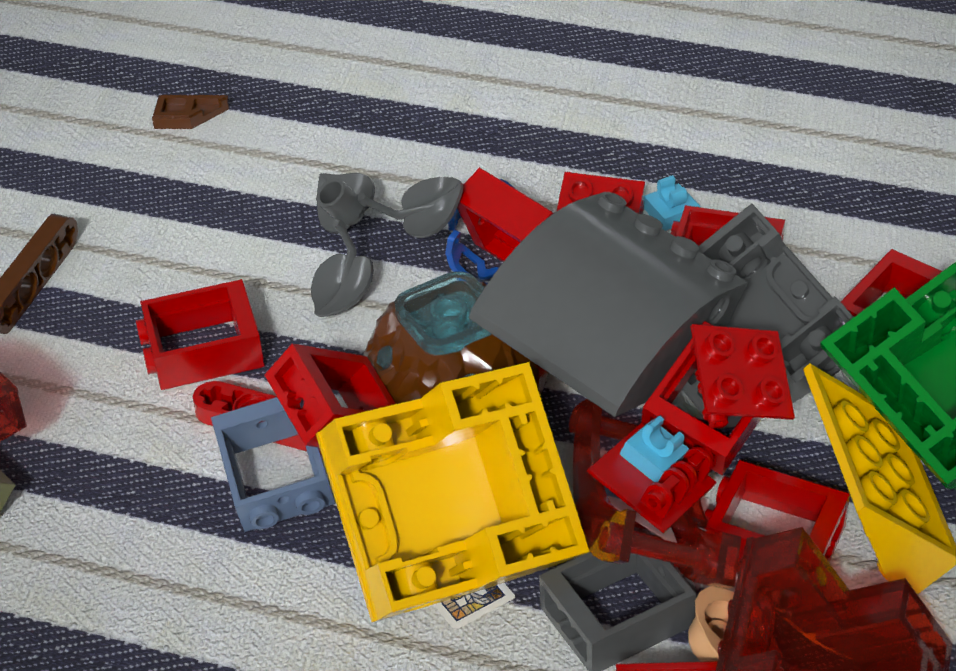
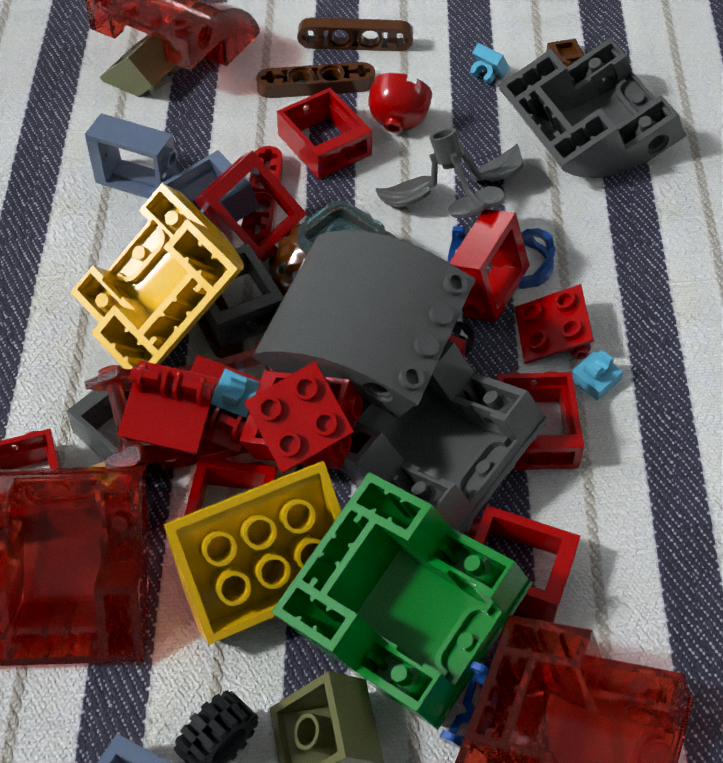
camera: 70 degrees right, 10 degrees up
(76, 329) = (271, 80): none -> reddish brown beam
(149, 558) = (110, 134): none -> sand blue window
(161, 166) = (488, 60): none -> medium azure tile
(197, 253) = (398, 102): none -> red cylinder
(305, 99) = (593, 112): none -> dark grey slope
(676, 491) = (167, 407): none -> red hinge

